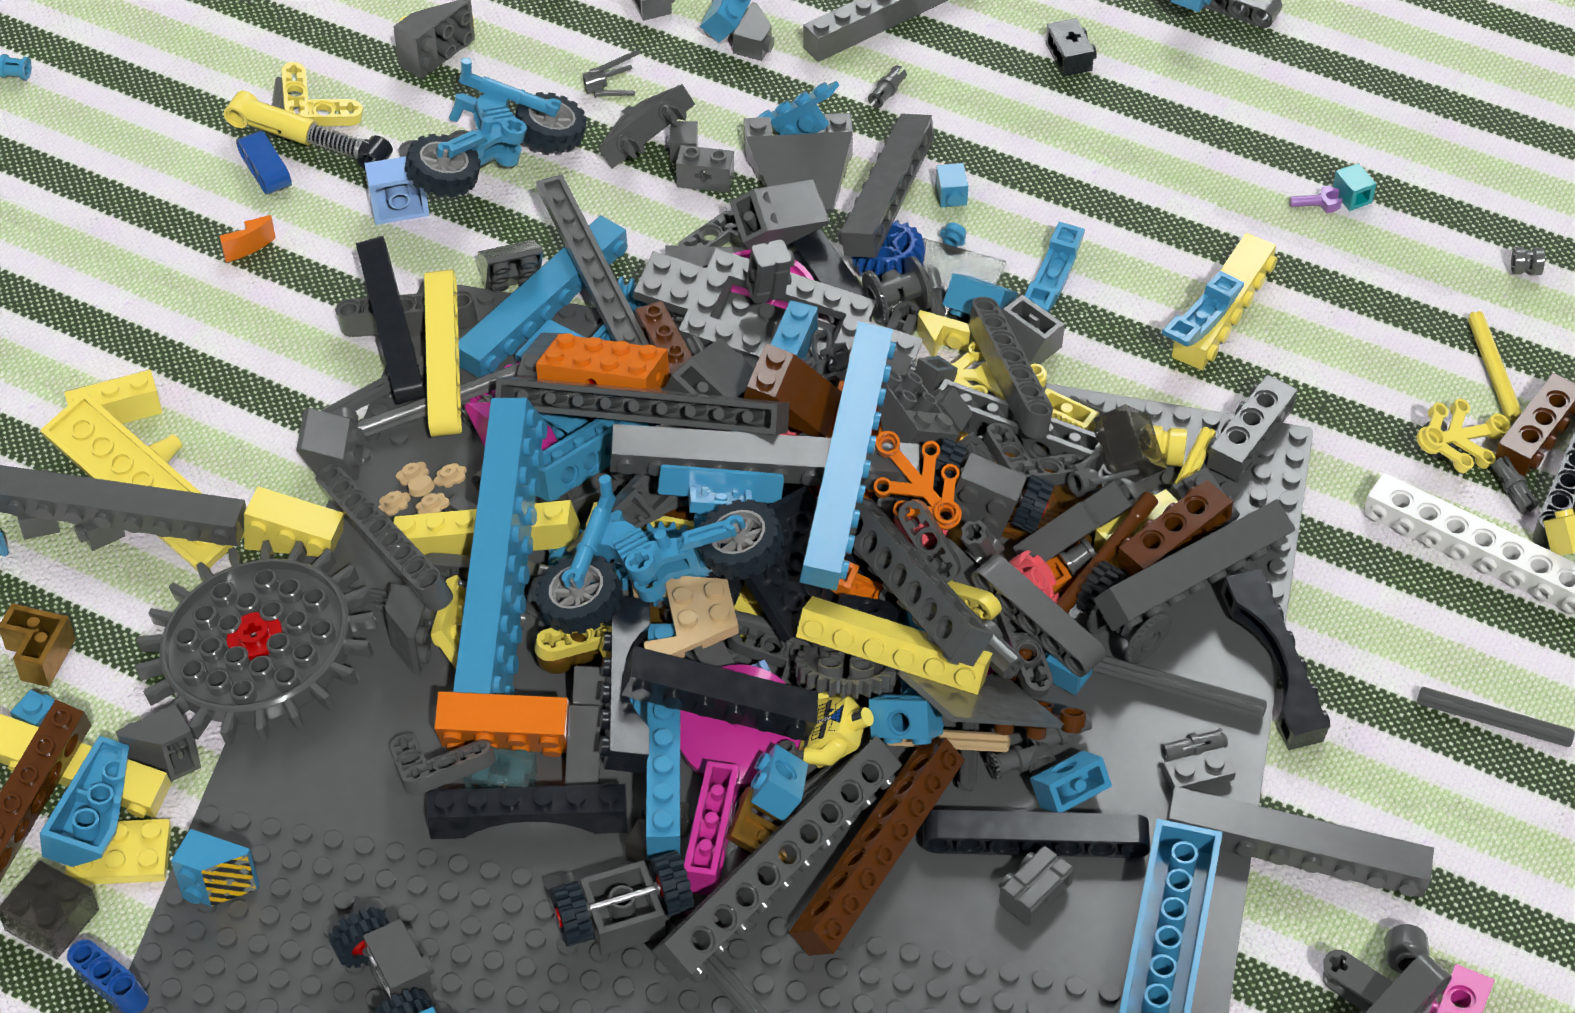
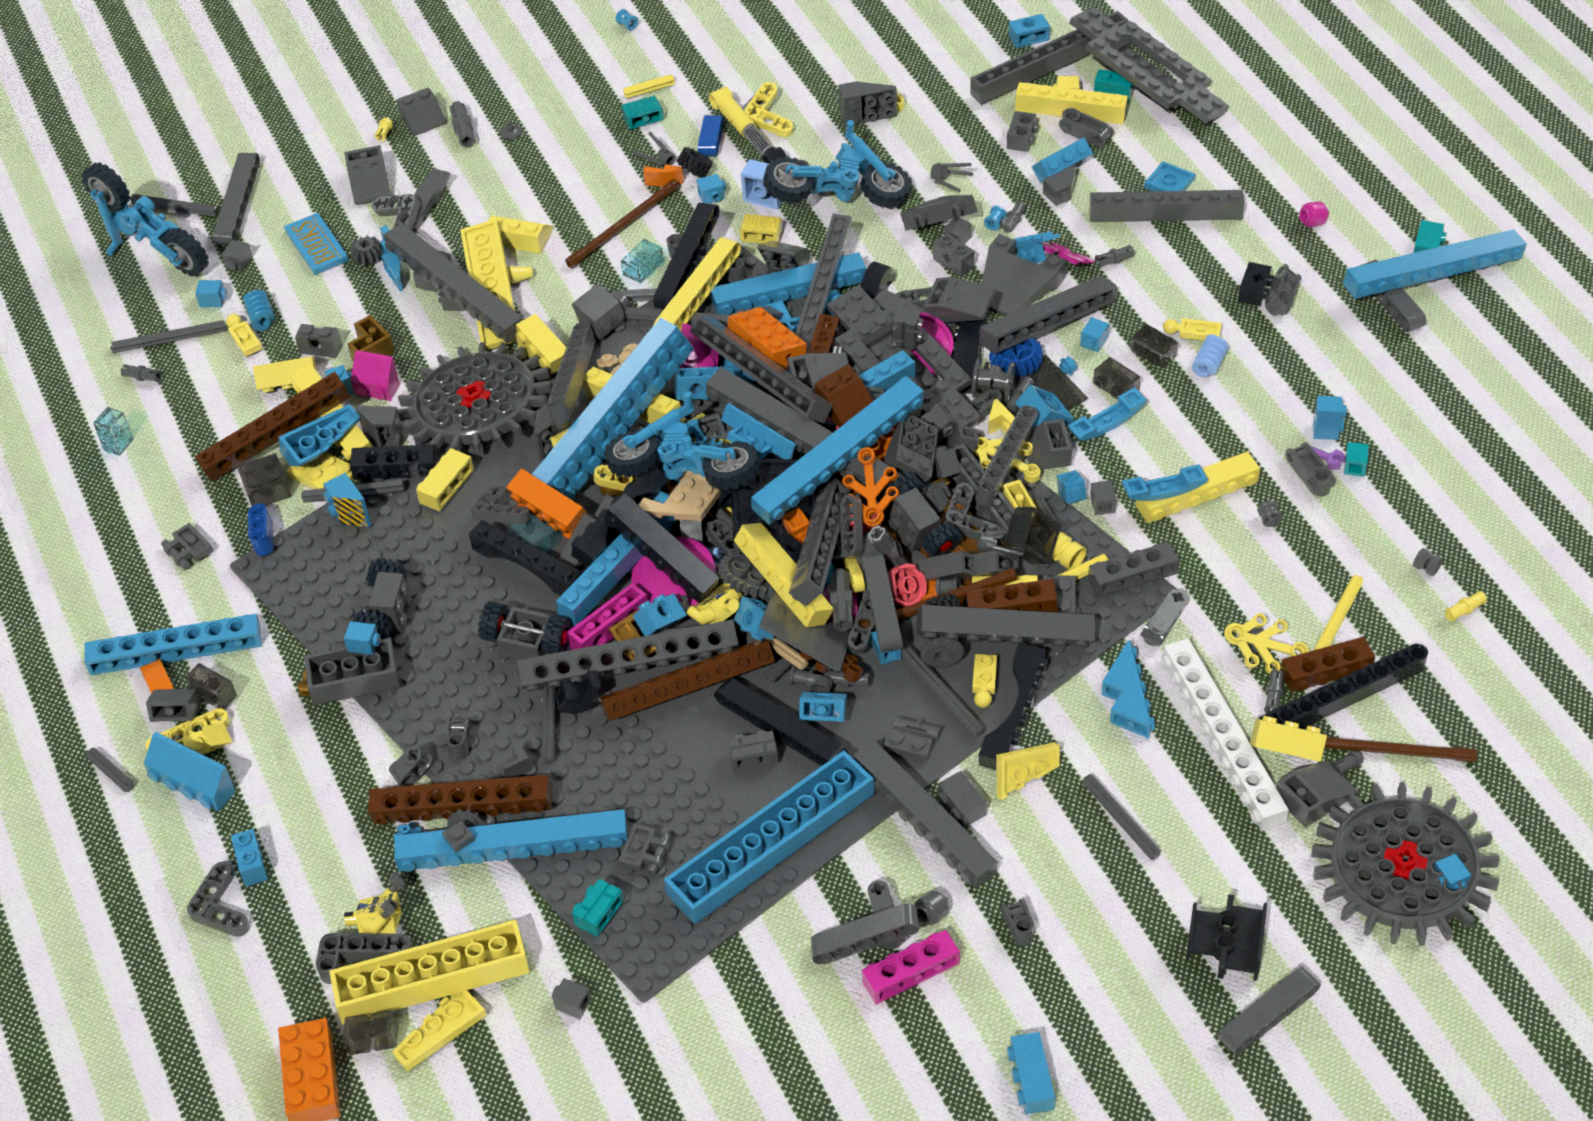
camera: 40 degrees right, 0 degrees up
(87, 679) = (374, 375): none -> dark pink slope
(120, 137) = (648, 86): none -> light yellow axle
(144, 172) = (642, 112): none -> teal brick
(165, 873) = (365, 490): none -> dark grey axle
(206, 782) = (392, 461): none -> black brick
(225, 213) = (664, 155): none -> dark grey plant
(225, 385) = (580, 255): none -> reddish brown piece
(279, 202) = (694, 162): none -> black tyre
(314, 767) = (444, 479): none -> light yellow brick
(318, 356) = (642, 261): none -> clear light blue brick
(326, 227) = (711, 189): none -> dark azure brick
(438, 246) = (760, 228): none -> light yellow brick
(642, 238) = (876, 278): none -> black brick
(710, 99) = (993, 221): none -> dark azure bush
(730, 93) = (1014, 216): none -> dark grey axle
(762, 944) = (578, 697): none -> black brick
(844, 107) = (1066, 253): none -> dark pink plant
(1024, 224) = (1115, 378): none -> clear smoke brick
(1028, 166) = (1154, 346): none -> clear smoke brick
(1052, 127) = (1192, 328): none -> light yellow plate
(1093, 370) = (1071, 487): none -> dark azure brick
(1100, 148) = (1210, 356): none -> light blue piece
(1109, 40) = (1282, 291): none -> dark grey piece
(1136, 364) = (1103, 497): none -> dark grey brick
(1210, 643) = (984, 679): none -> light yellow plate
(1291, 154) = (1328, 417): none -> dark azure brick
(1317, 796) = (961, 799): none -> dark grey brick
(1318, 220) = (1310, 469): none -> dark grey piece
(1325, 291) = (1270, 514): none -> dark grey wheel
(1332, 466) = (1164, 618): none -> piece
(1348, 719) = (1023, 765): none -> light yellow wing
(1363, 565) = (1125, 687): none -> dark azure slope
(1510, 904) = (1018, 918): none -> dark grey piece

